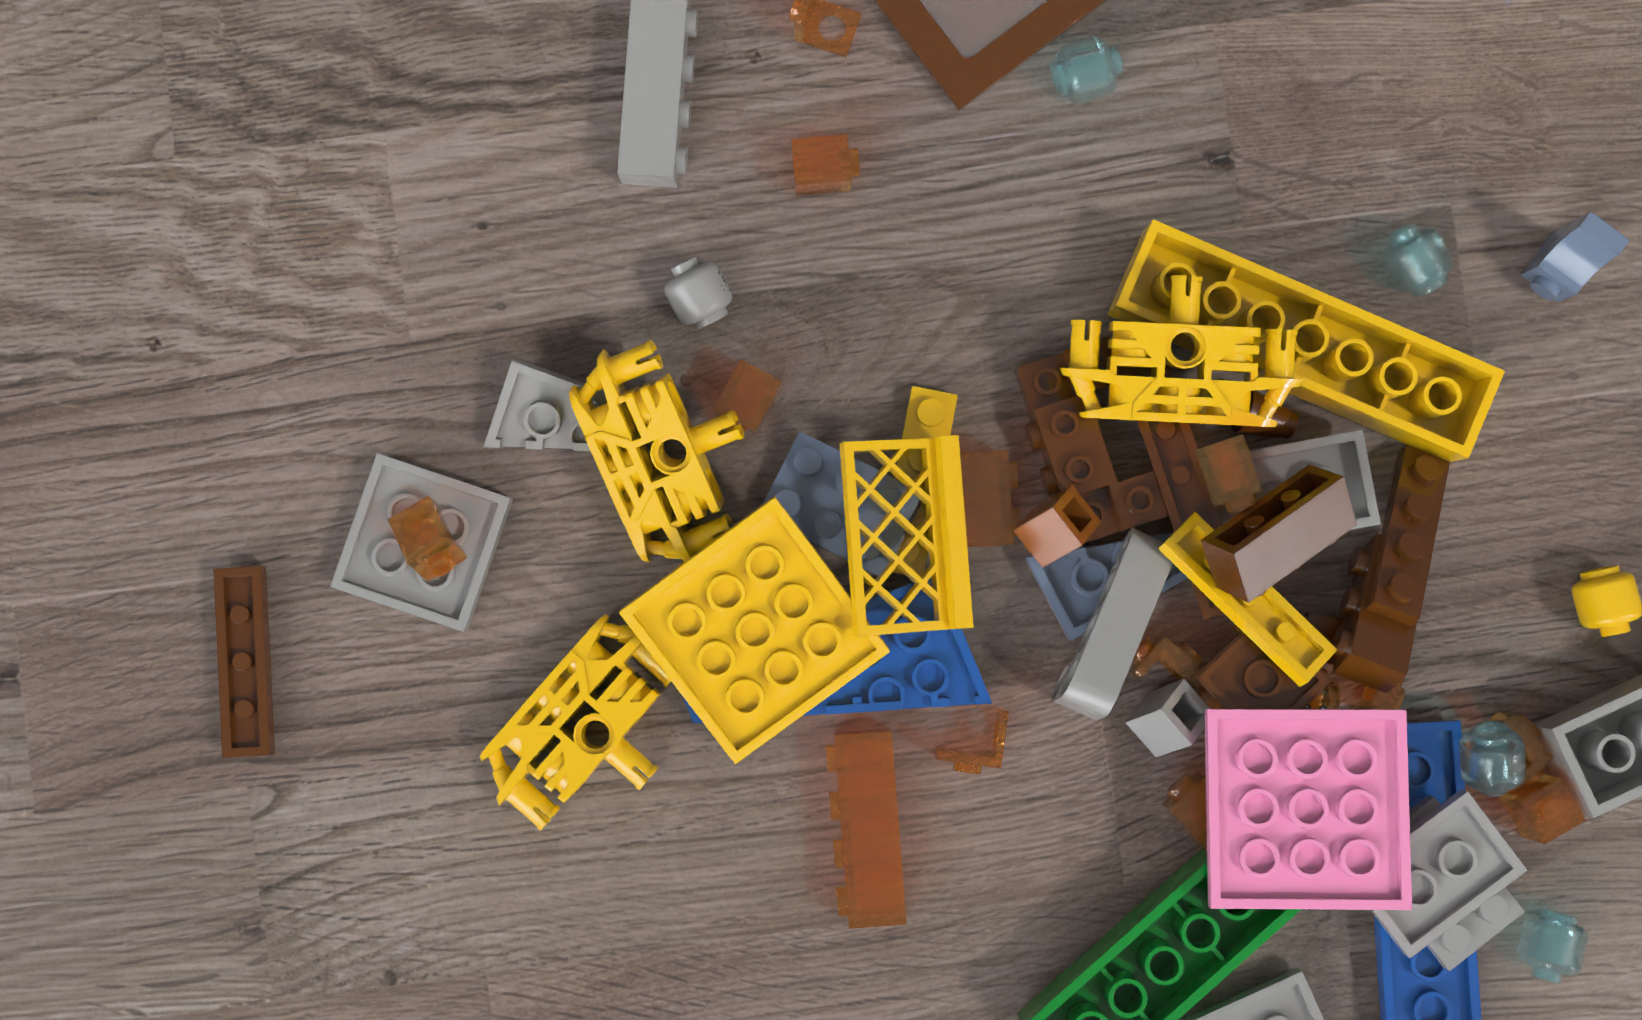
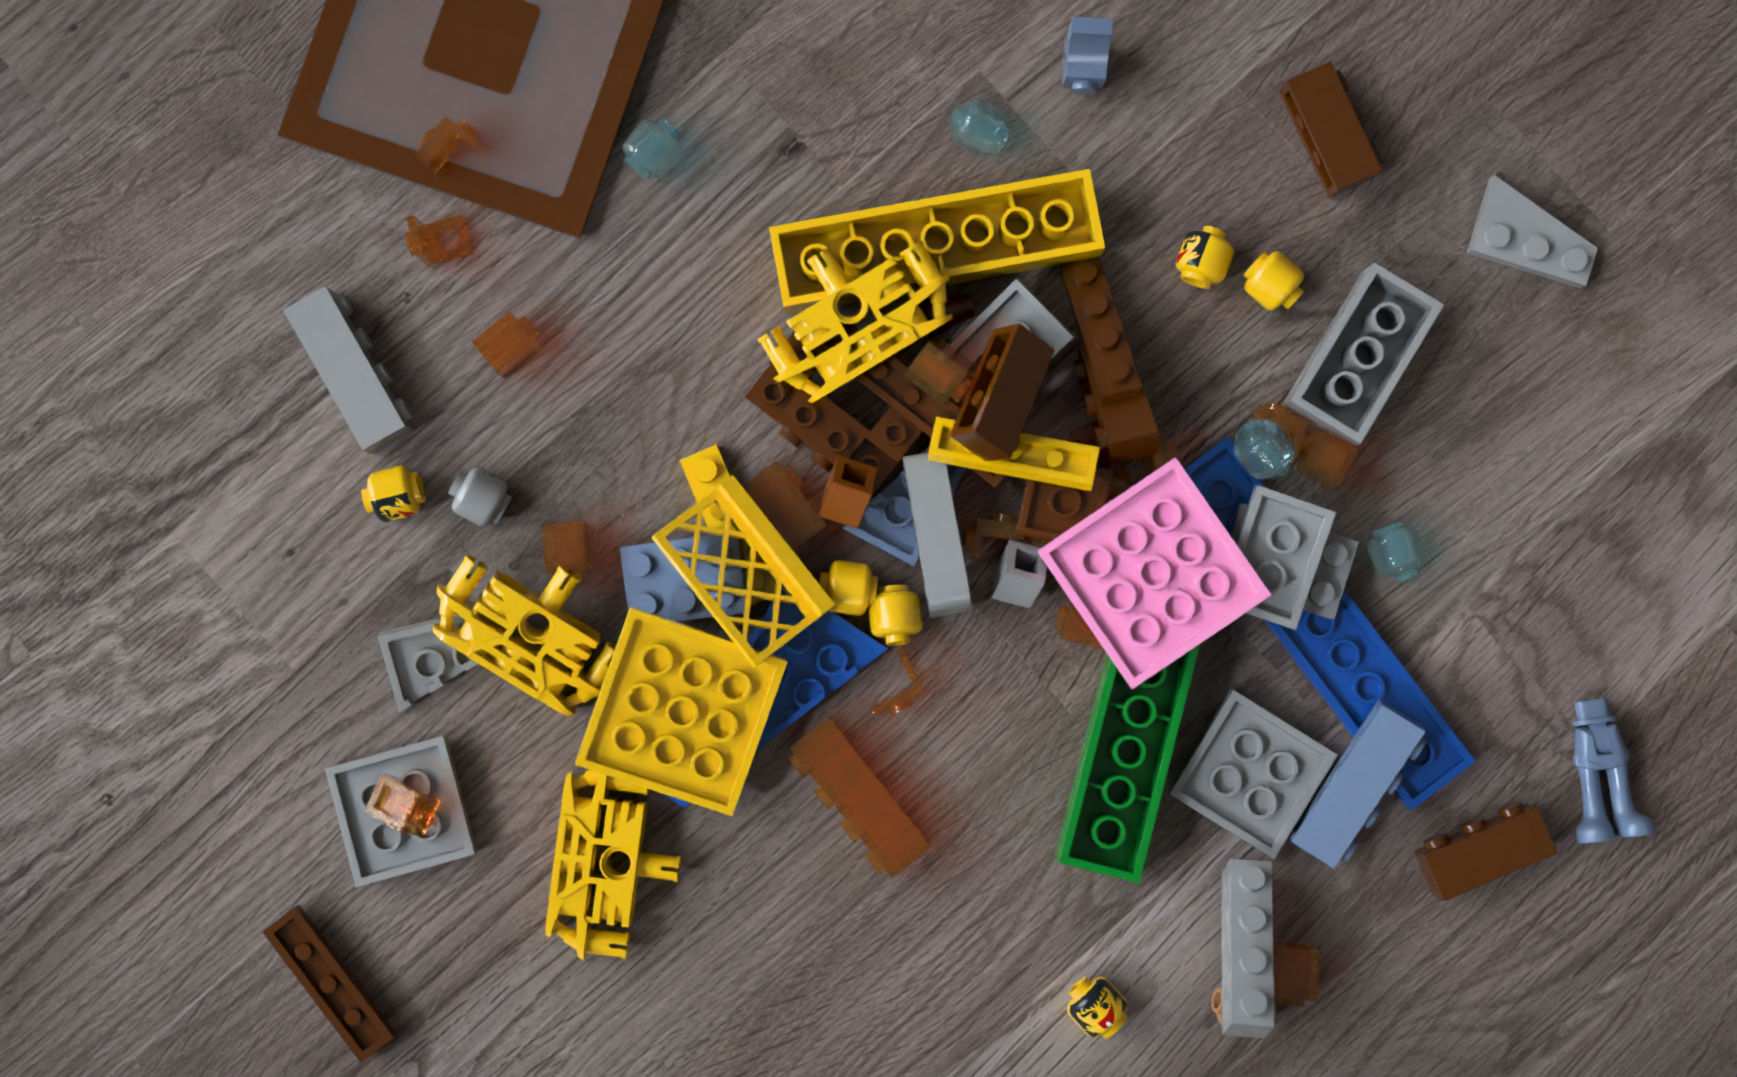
camera: 35 degrees left, 0 degrees up
(618, 235) = (394, 493): none -> yellow head
(997, 619) = (849, 587): none -> yellow head
(1021, 675) = (895, 614): none -> yellow head
(1554, 531) = (1204, 257): none -> yellow head

